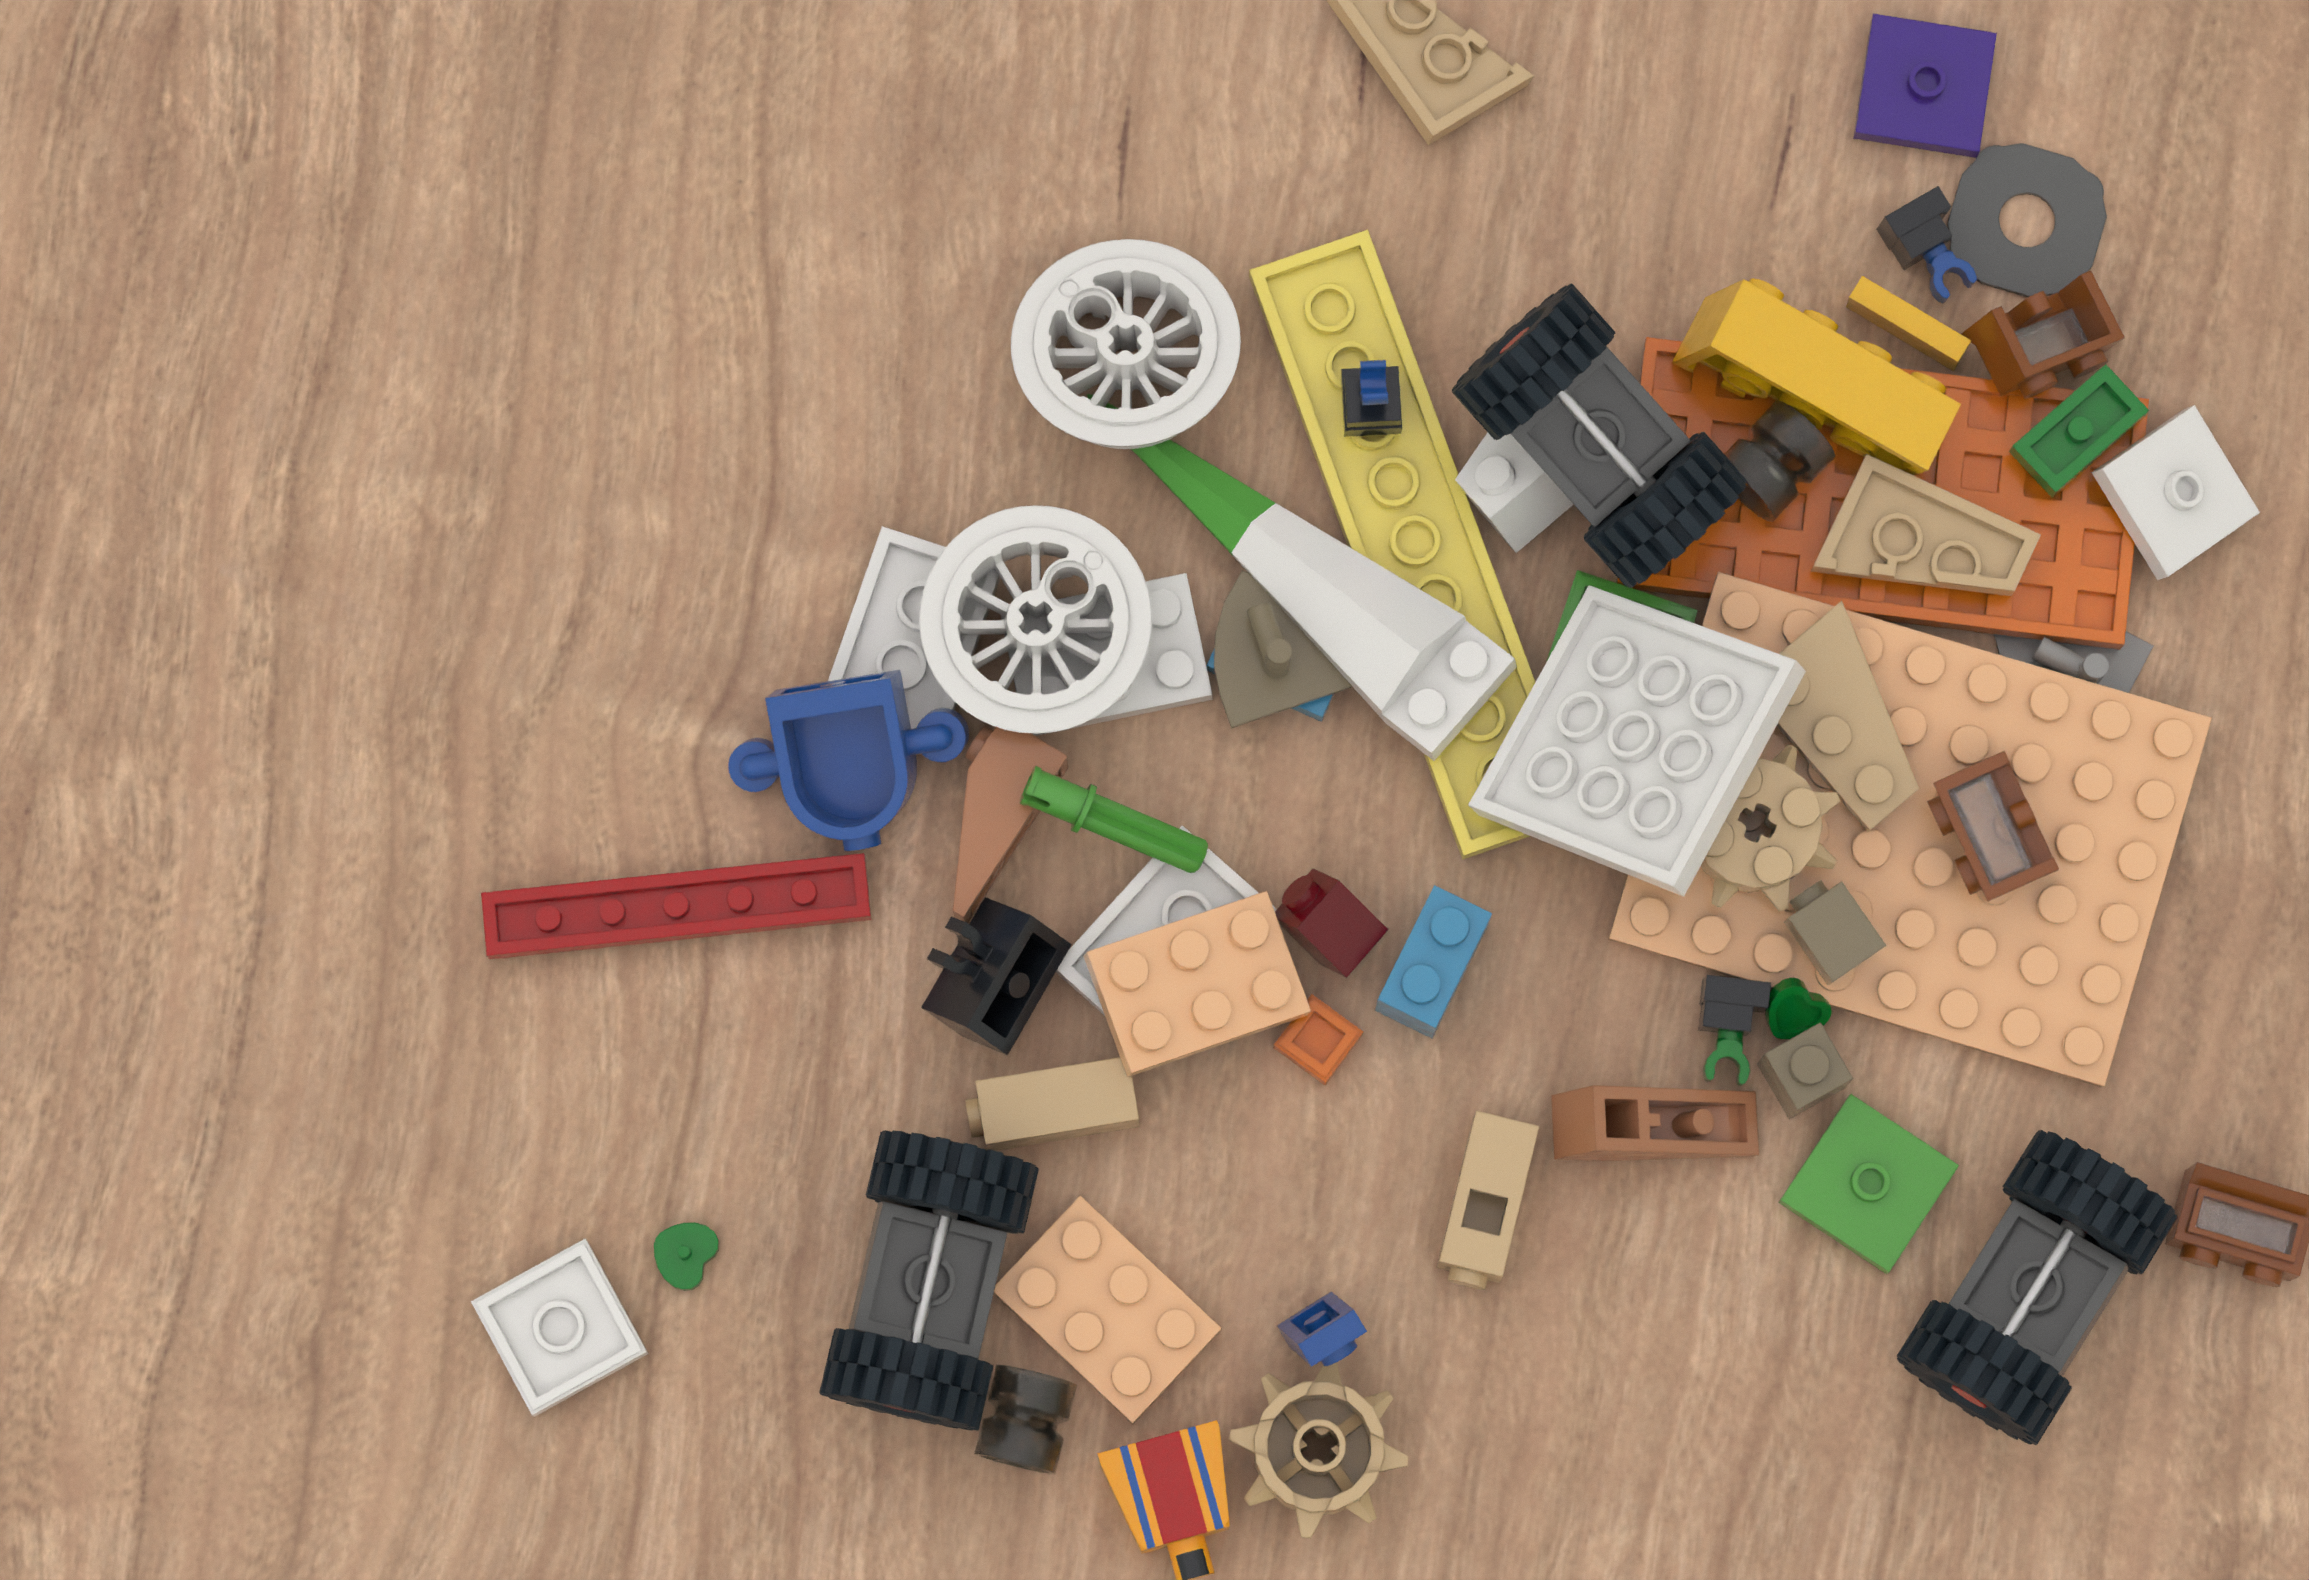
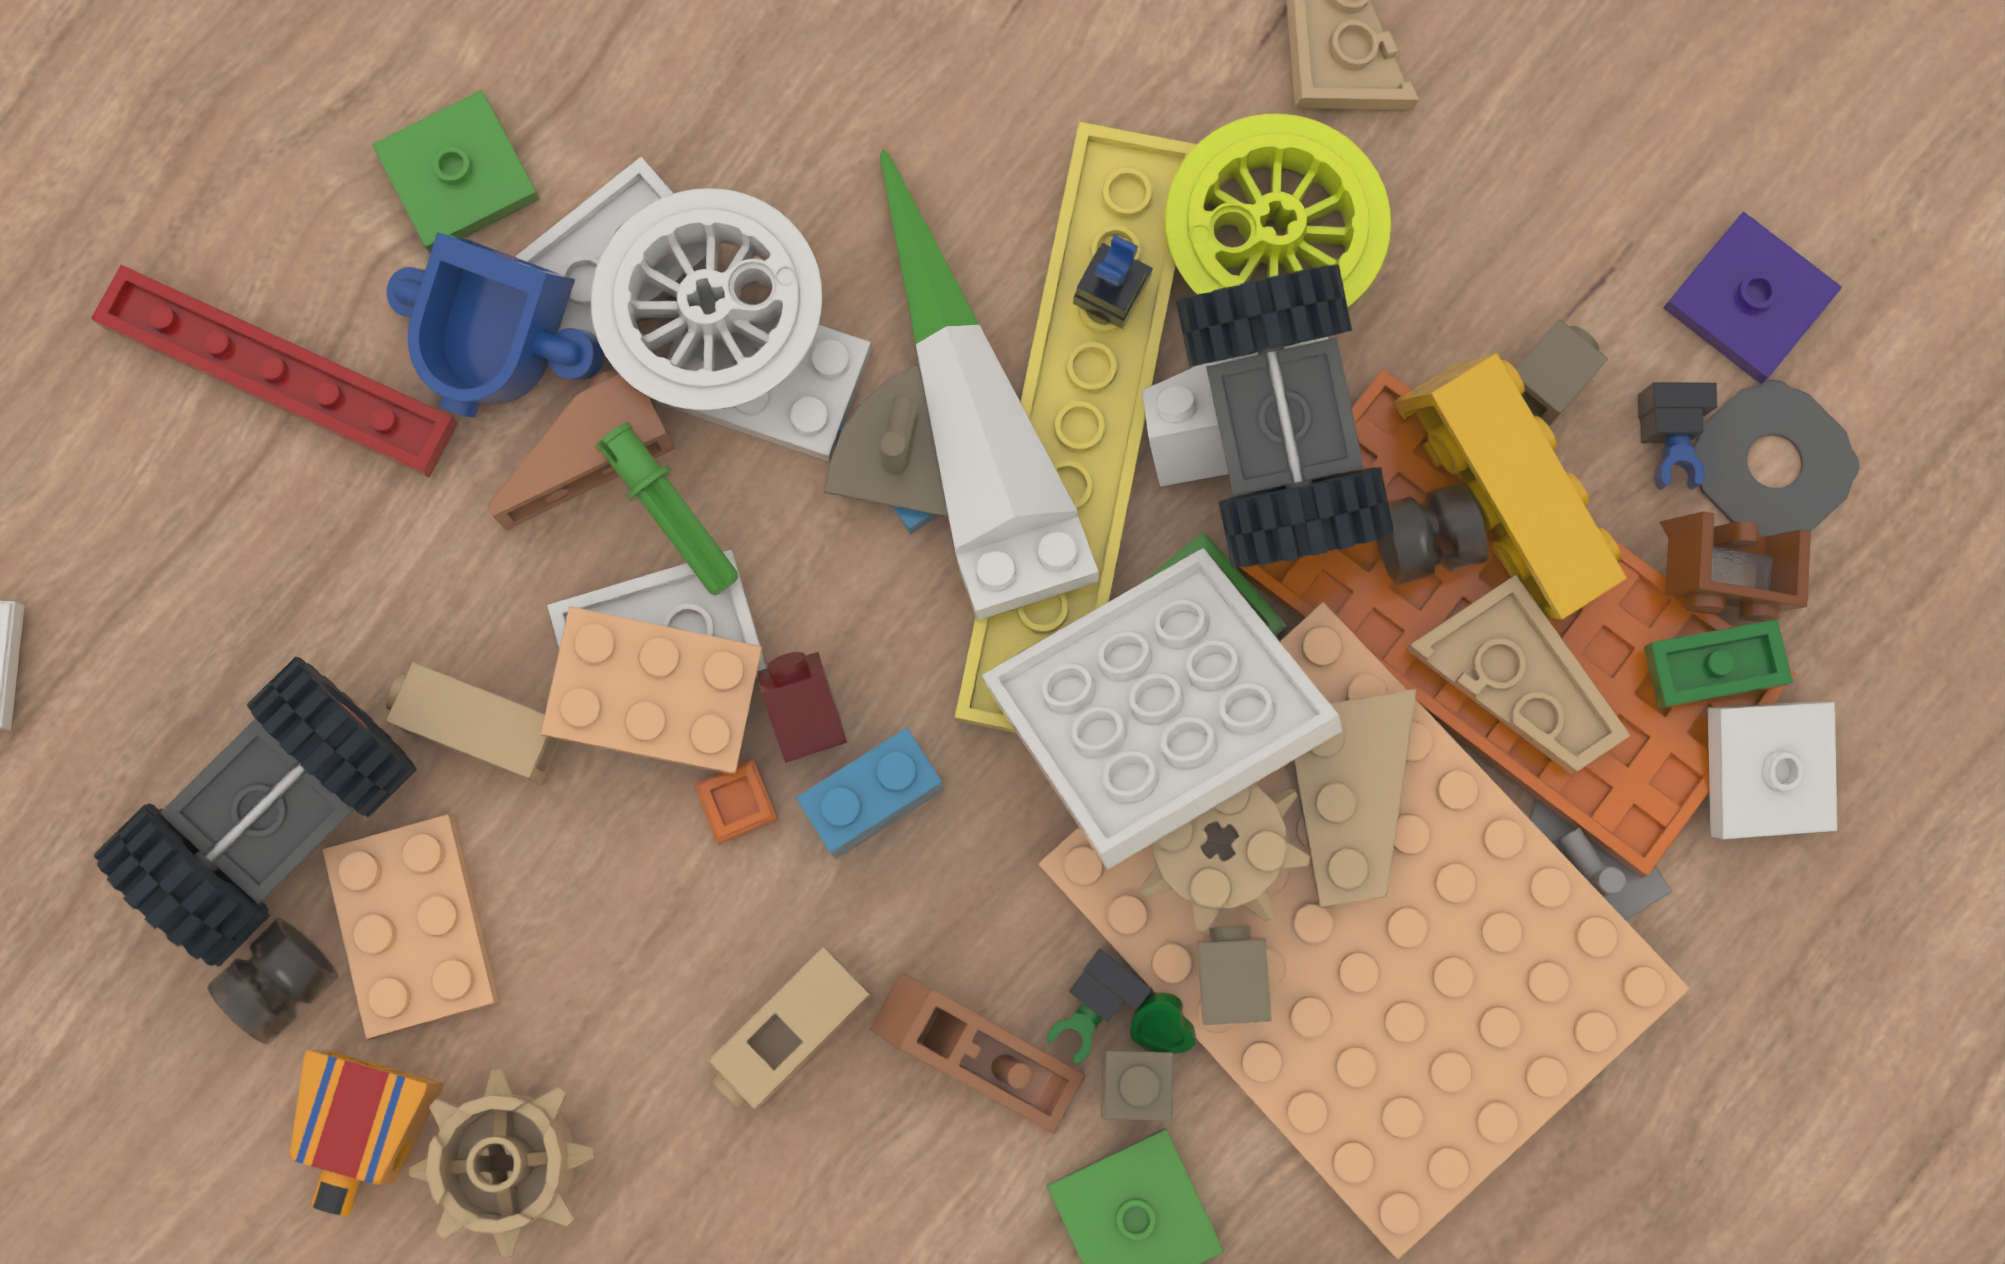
camera: 30 degrees right, 0 degrees up
(683, 1252) = (95, 664): green piece -> none
(718, 635) = (456, 170): none -> bright green plate
(994, 974) = (488, 581): black brick -> none
(1089, 284) = (930, 125): white piece -> none
(1323, 1331) = (566, 1061): blue plate -> none
(1477, 177) = (1276, 144): none -> neon yellow piece
(1796, 252) = (1558, 369): none -> dark tan brick
(1908, 323) = (1619, 486): yellow tile -> none
(1993, 827) = (1432, 972): window -> none

